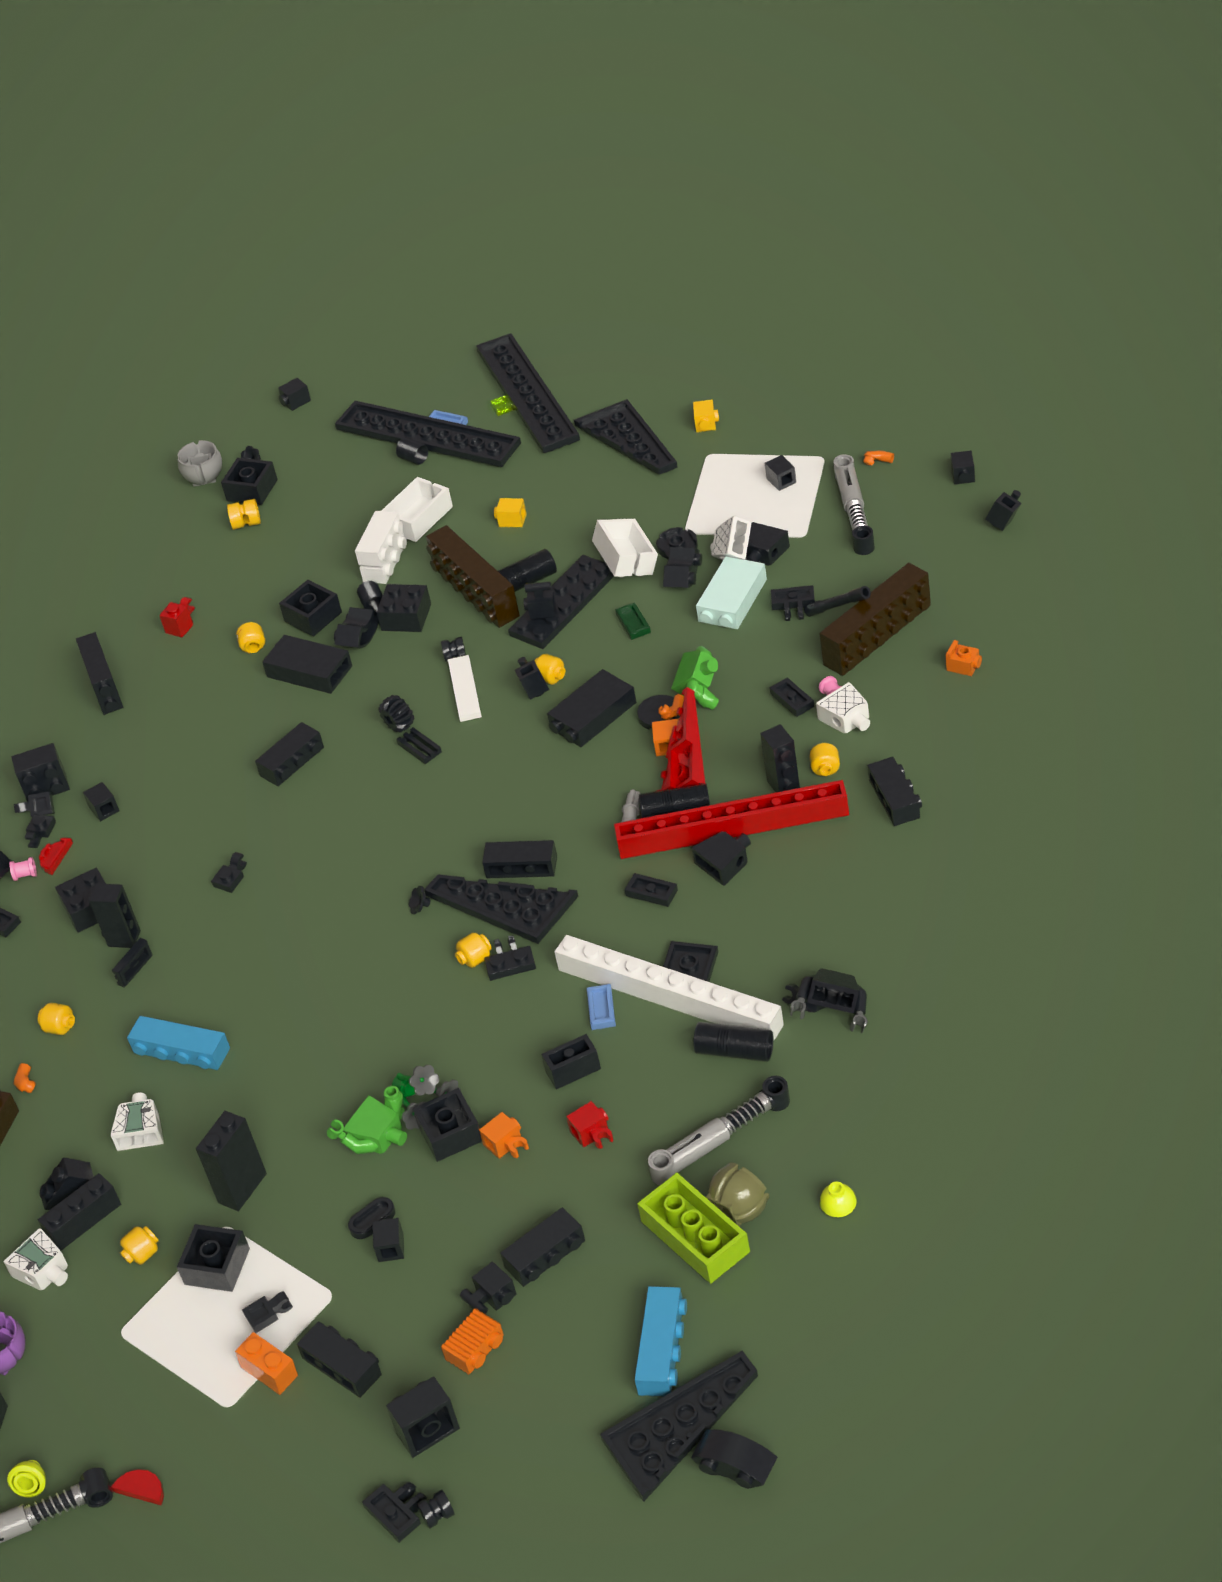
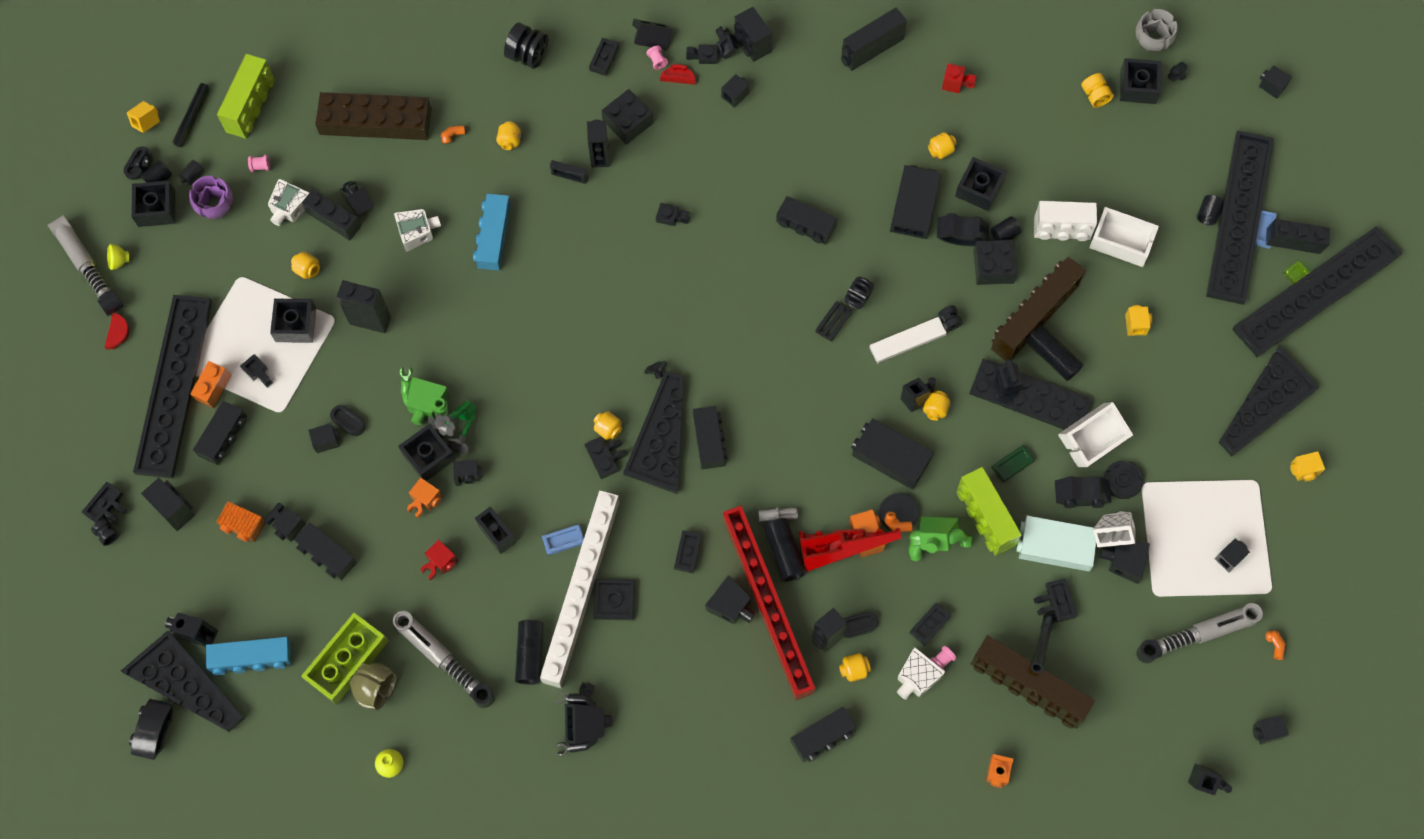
camera: 70 degrees right, 25 degrees up
(251, 1416) = (172, 387): none -> black plate
(466, 393) = (1297, 236): none -> black brick
(485, 1090) = (467, 472): none -> black brick
(607, 1400) = (191, 629): none -> black torso
(682, 630) = (988, 511): none -> lime brick

